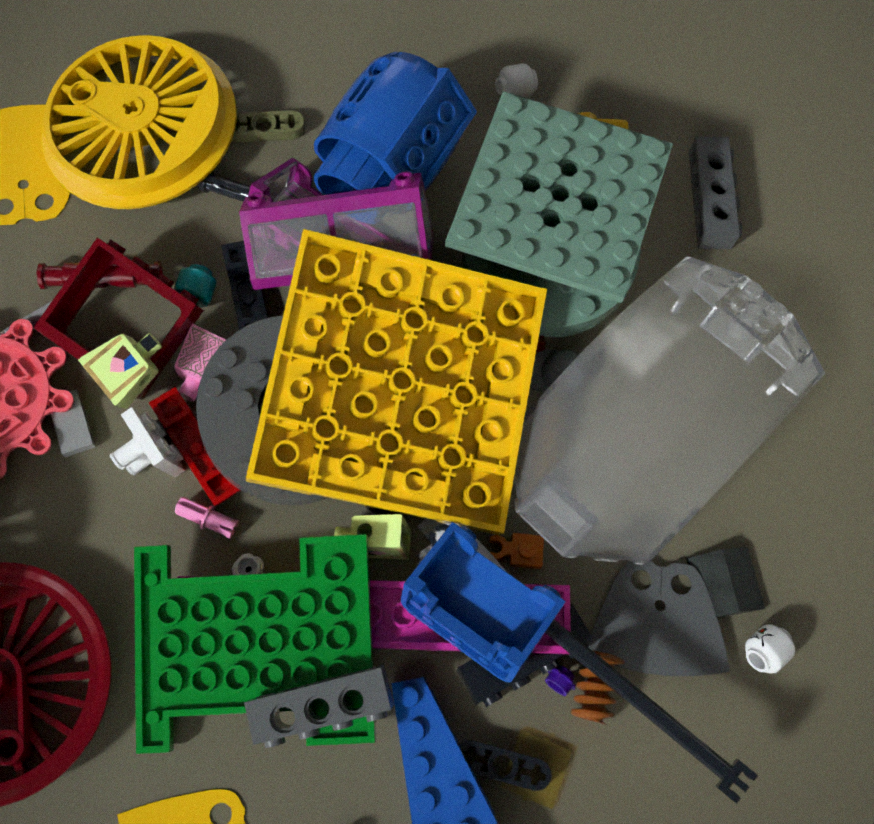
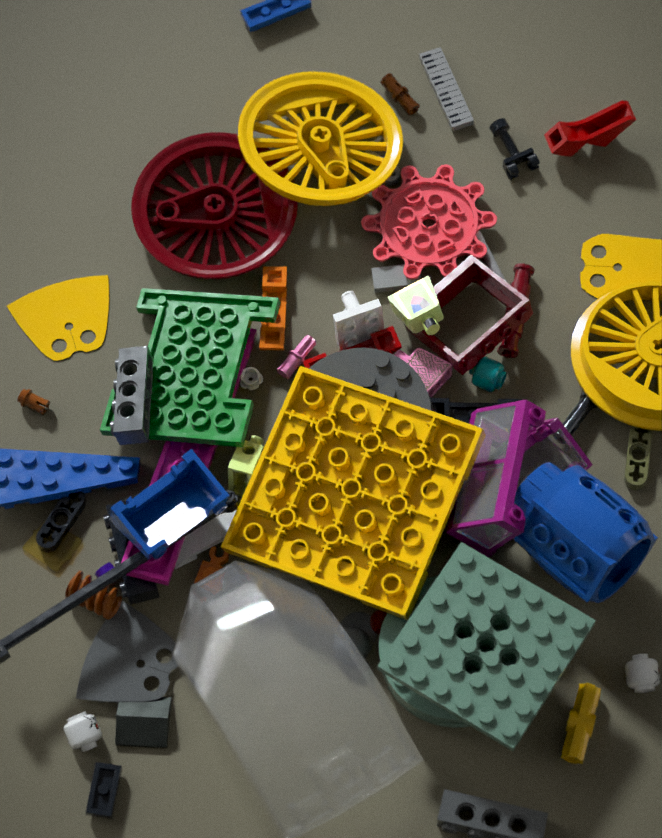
camera: 115 degrees right, 5 degrees down
(117, 569) = (274, 285): none -> orange slope
(826, 603) = (103, 790): none -> black plate

